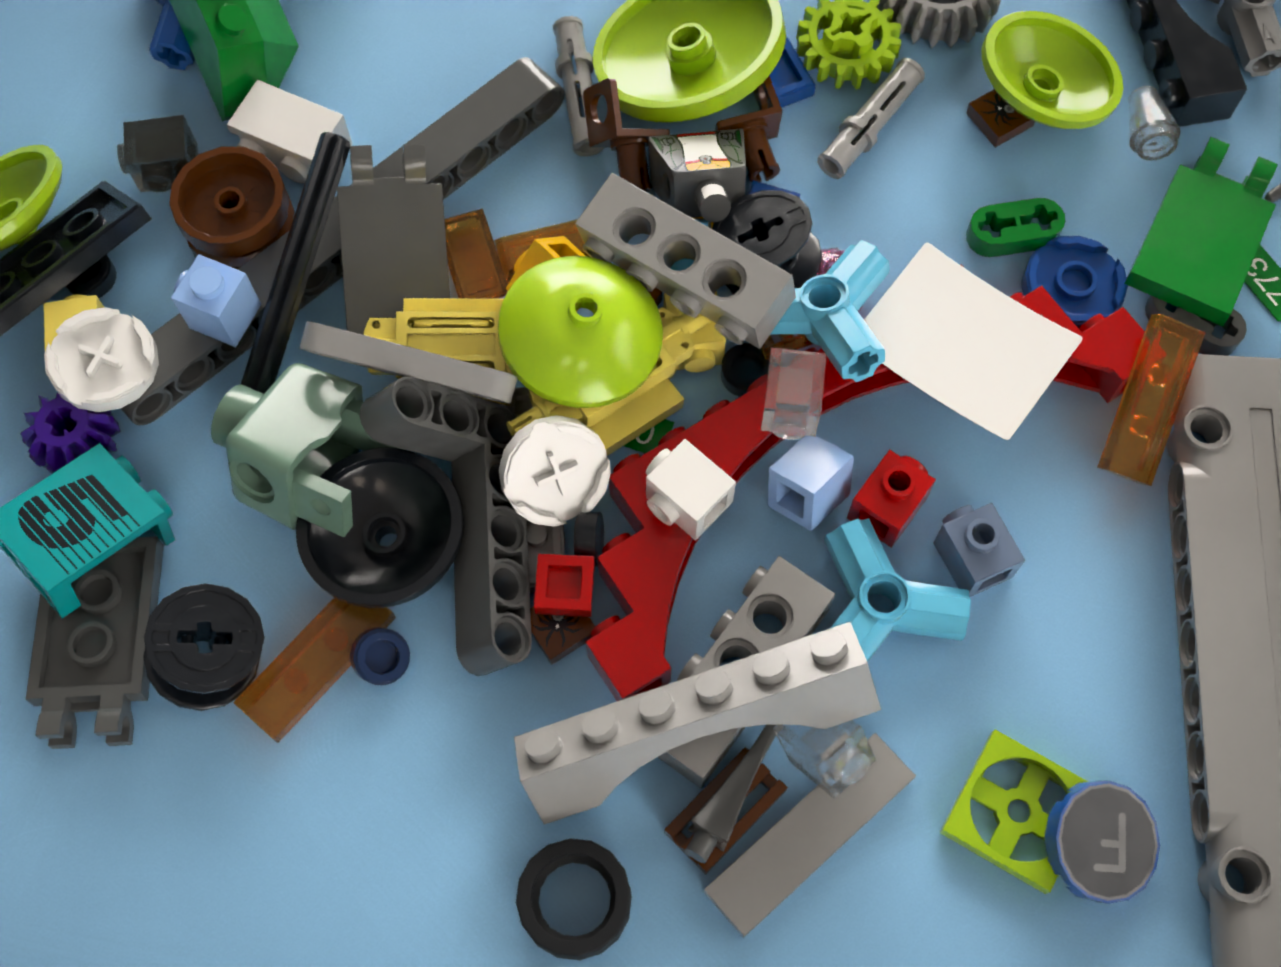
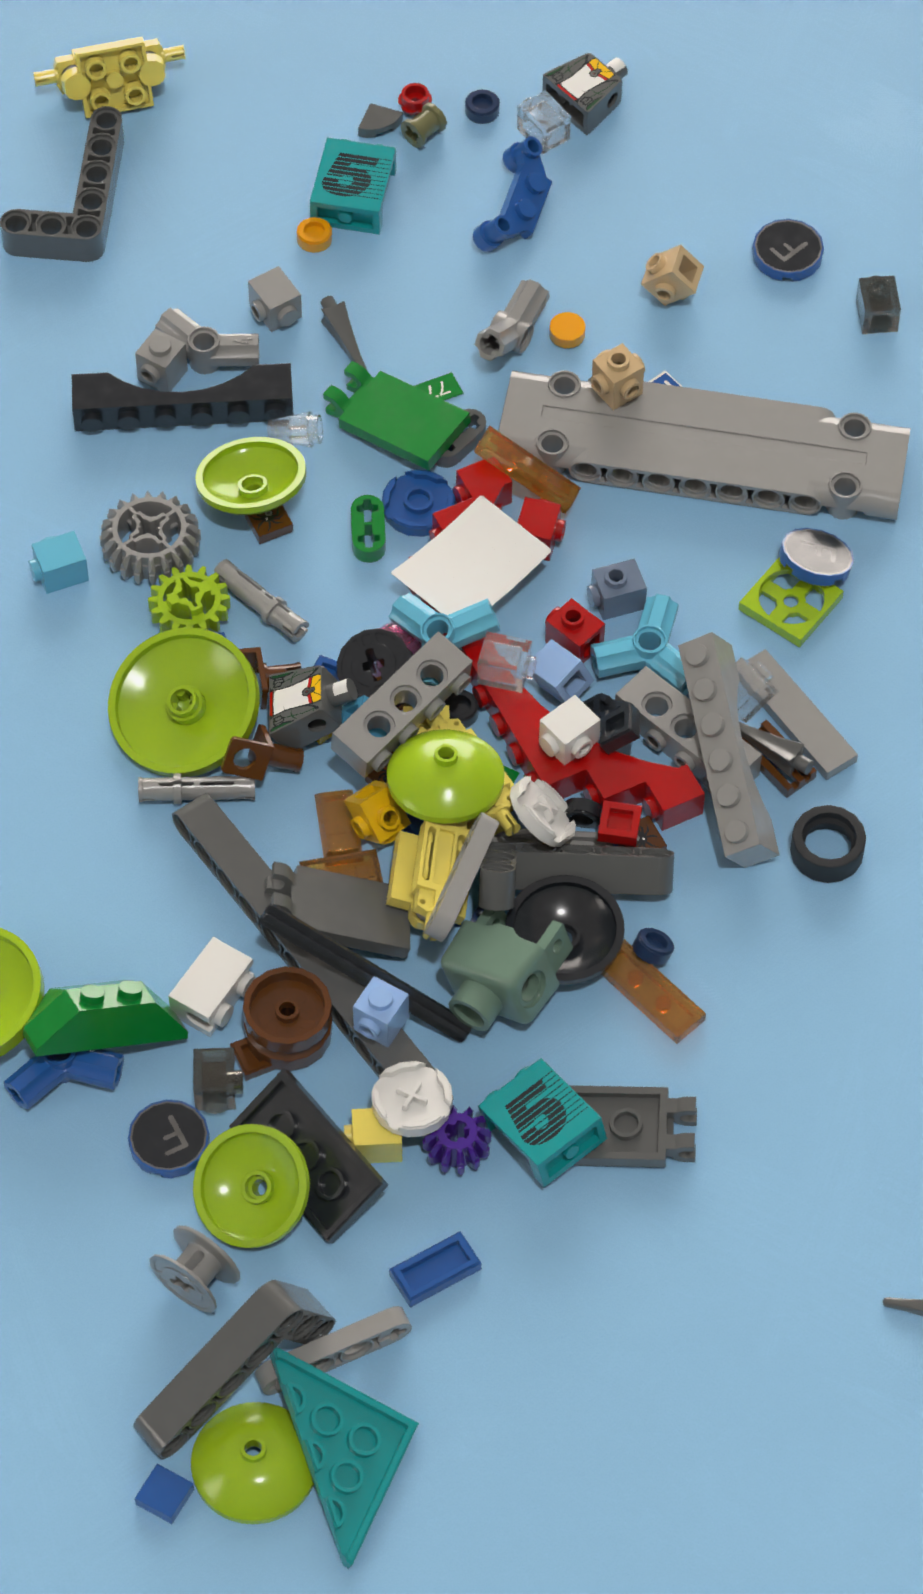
camera: 85 degrees left, 10 degrees down
(87, 122) = (168, 1138): none -> black tile
(172, 654) = (640, 1044): black piece -> none
(742, 547) = (618, 721): none -> black tile
(1062, 433) = (543, 521): none -> red brick

